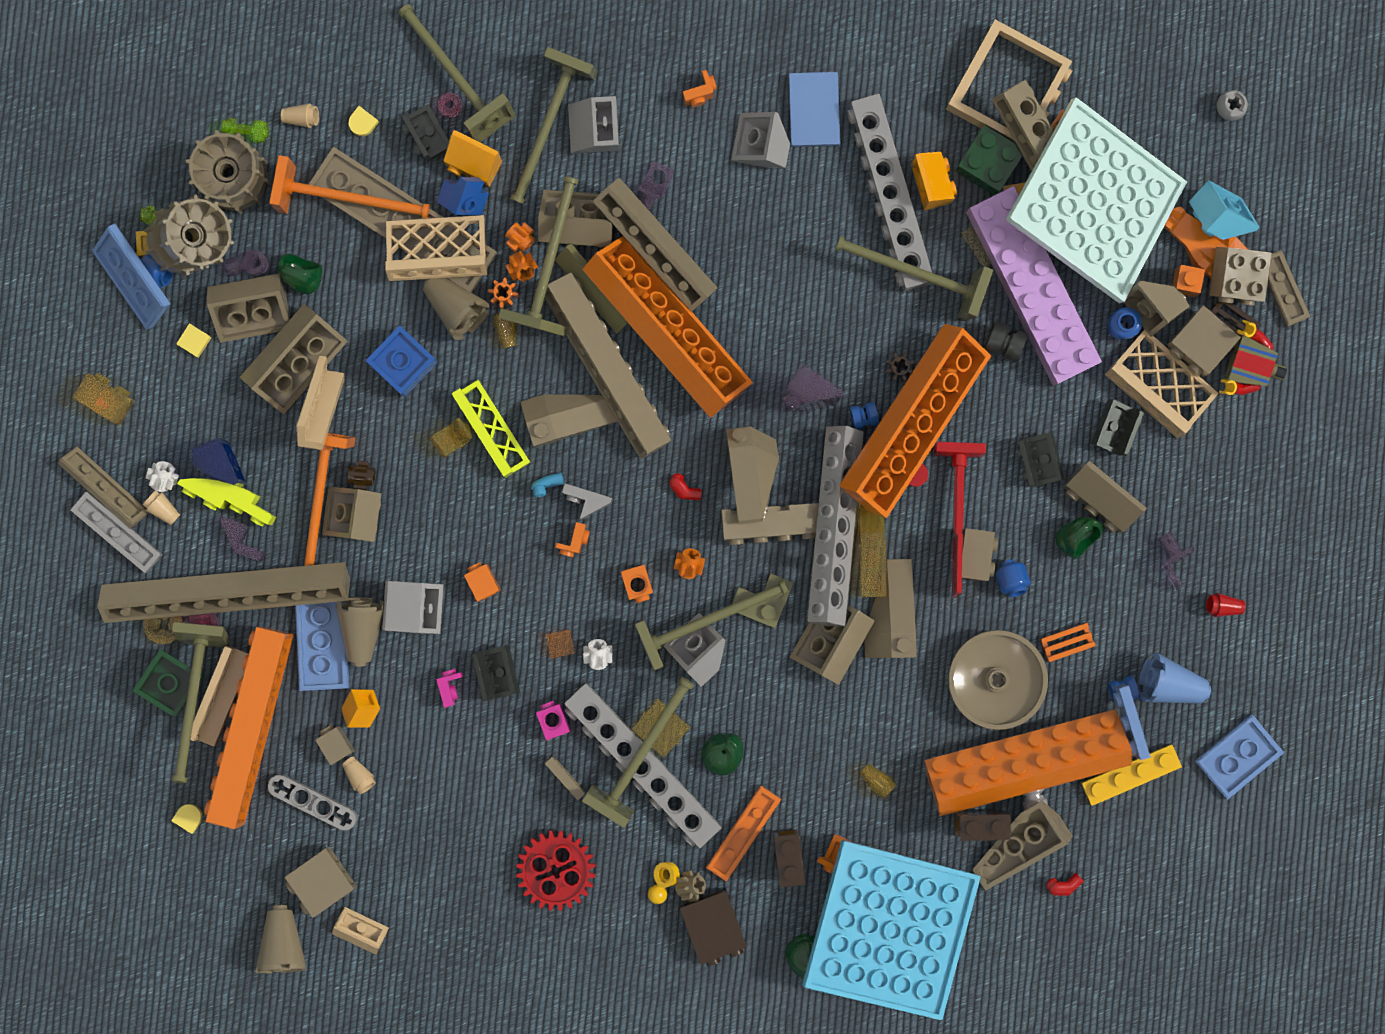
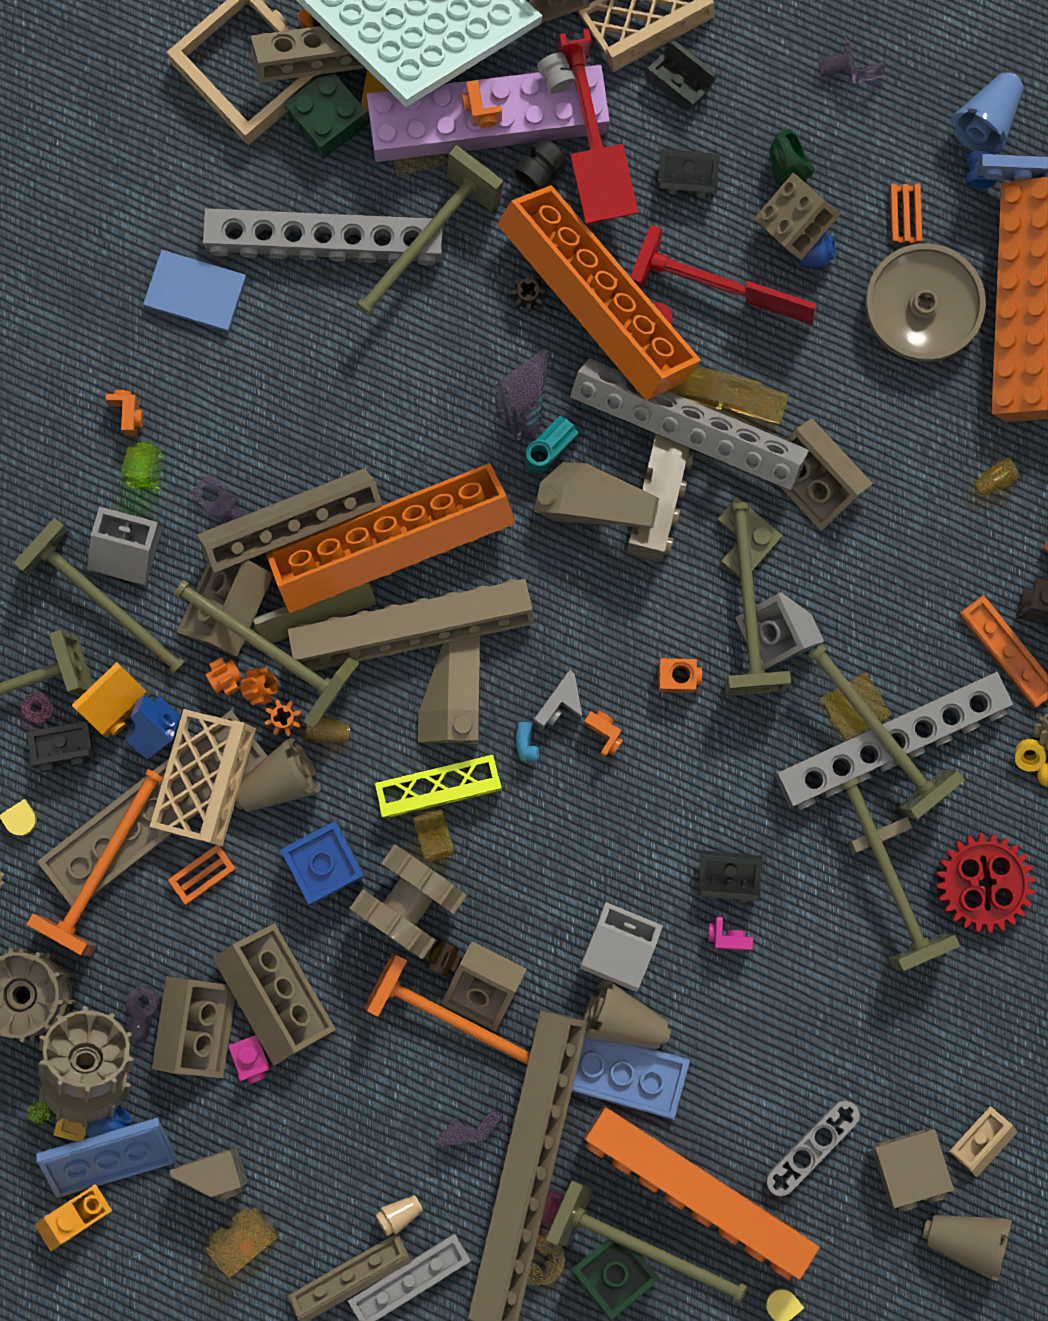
camera: 75 degrees left, 5 degrees down
(80, 268) = (73, 1217): none -> light orange slope
(144, 360) = (214, 1175): none -> dark tan slope
(162, 476) = (361, 1200): white gear -> none
(194, 340) = (209, 1108): light yellow tile -> none
(218, 461) = (369, 1124): clear blue slope -> none
(219, 494) = (405, 1139): neon yellow slope -> none
(219, 697) = (648, 1215): tan fence -> none
(239, 358) = (250, 1059): none -> dark pink bracket
(300, 273) = (175, 951): dark green hair -> none
(319, 406) = (346, 976): tan fence -> none
(334, 744) = (752, 1097): dark tan brick -> none
(358, 775) = (798, 1081): tan cone -> none
(360, 708) = (719, 1052): light orange panel -> none
(379, 431) = (408, 901): none -> dark tan piece
(382, 285) = (210, 883): none -> orange tile
(482, 581) = (616, 857): orange brick -> none
(487, 837) = (921, 947): none -> olive tile
(553, 731) = (820, 822): dark pink brick -> none
(560, 643) = (719, 790): clear orange tile -> none
(597, 654) = (747, 749): white gear -> none
(661, 117) = (143, 466): none -> clear neon green slope
(682, 490) = (586, 588): red arm -> none
(689, 563) = (675, 607): orange gear -> none
(723, 753) = (909, 643): dark green hair -> none
(761, 140) = (210, 361): light grey slope -> none
(787, 425) = (550, 443): none -> teal piece
(858, 416) = (571, 351): blue wheel -> none
(894, 615) = (826, 396): dark tan wedge -> none
(933, 180) = (325, 184): light orange slope -> none
(978, 554) = (769, 271): dark tan brick -> none
(1014, 390) = (602, 171): none -> red piece
(1030, 556) = (797, 216): none -> dark tan brick
(1031, 271) = (473, 102): none -> orange bracket
(1079, 328) = (556, 73): none -> light grey wheel
(1103, 497) = (755, 116): dark tan slope -> none
(1127, 316) = (566, 21): blue head -> none
(1224, 605) = (919, 30): red cone -> none

